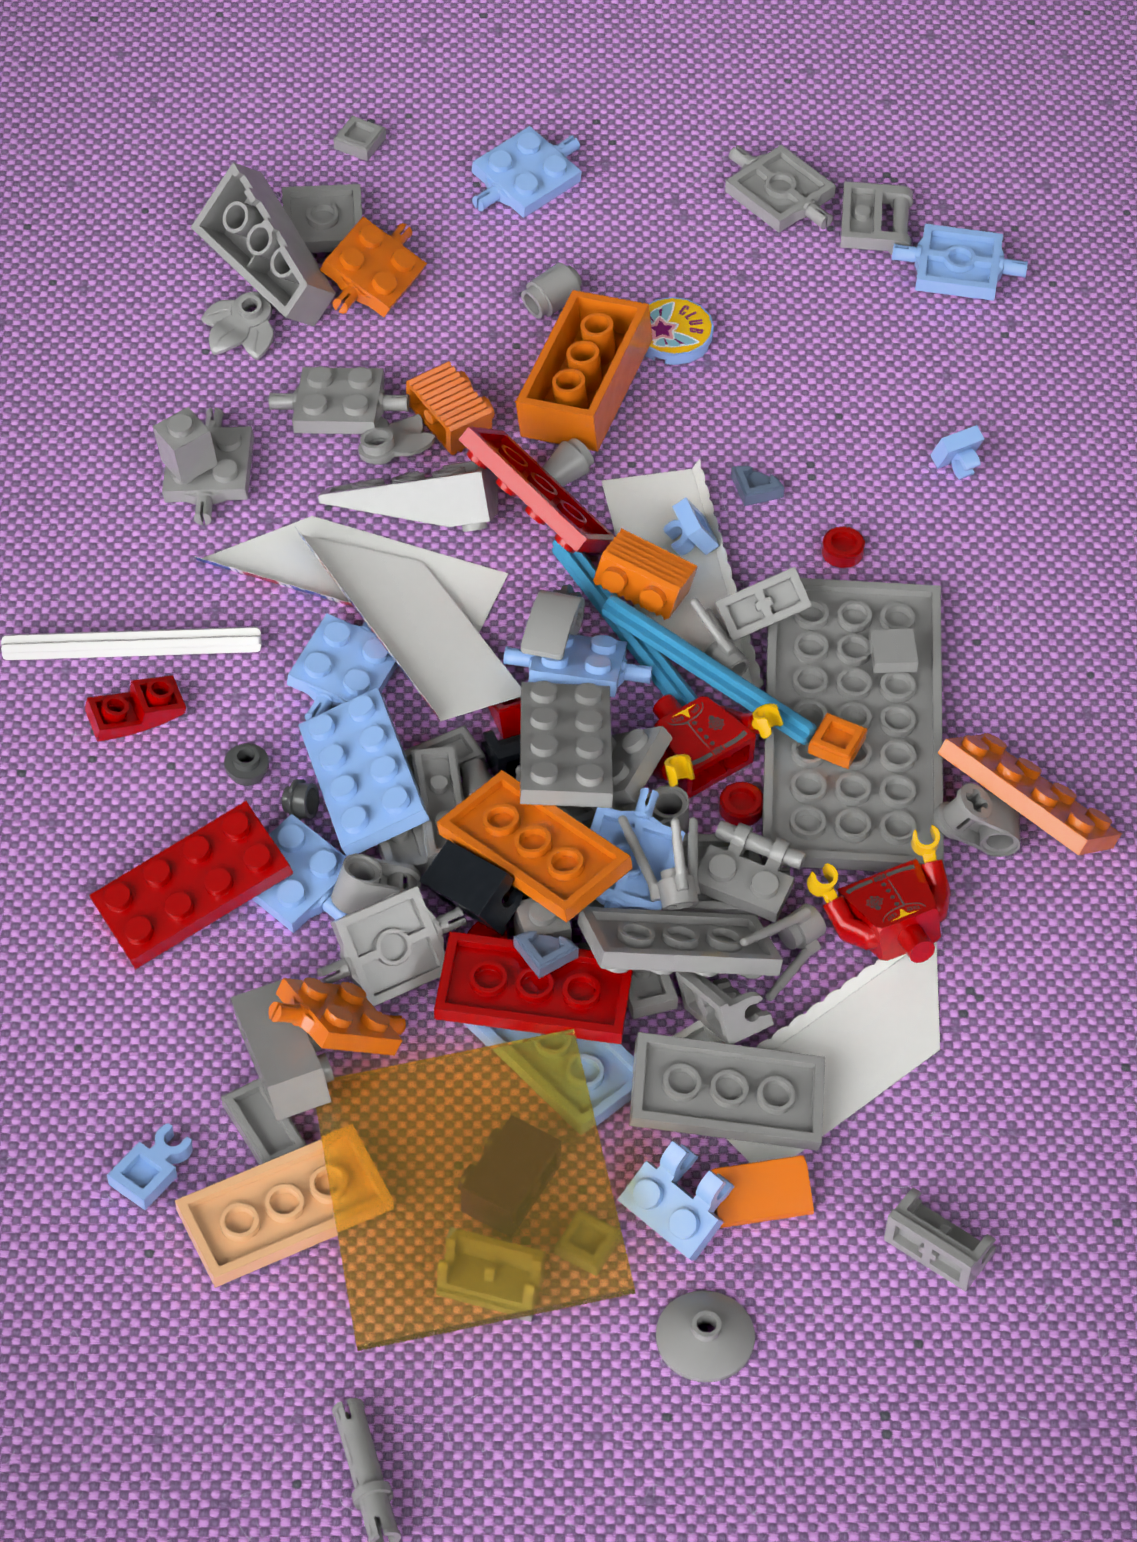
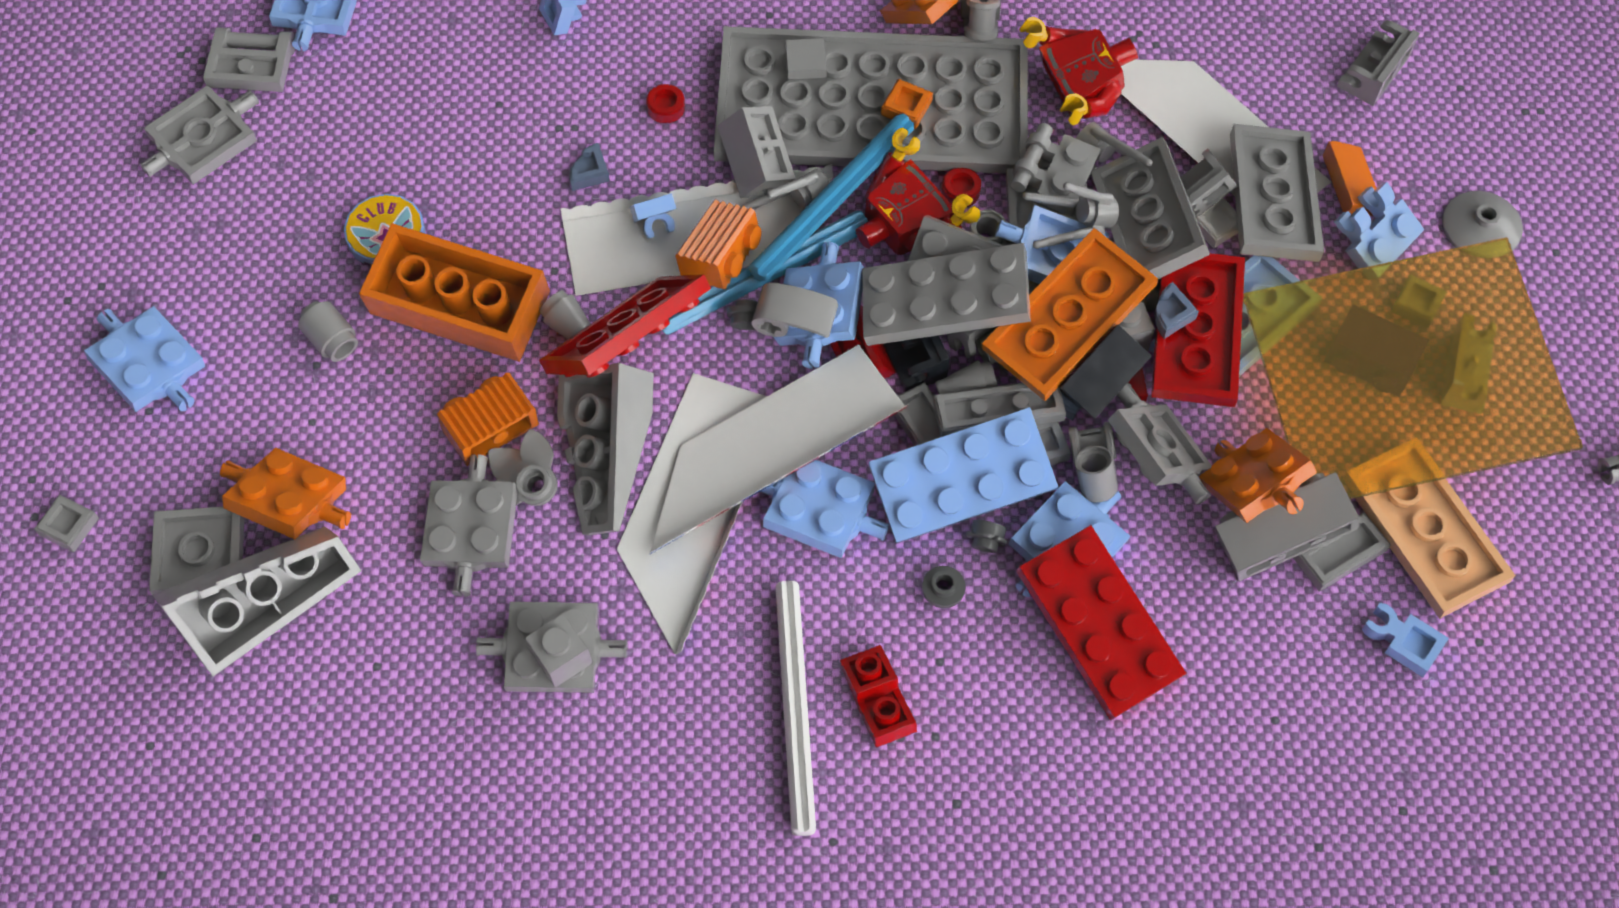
camera: 90 degrees left, 10 degrees up
(235, 326) = (354, 632): light grey plate -> none

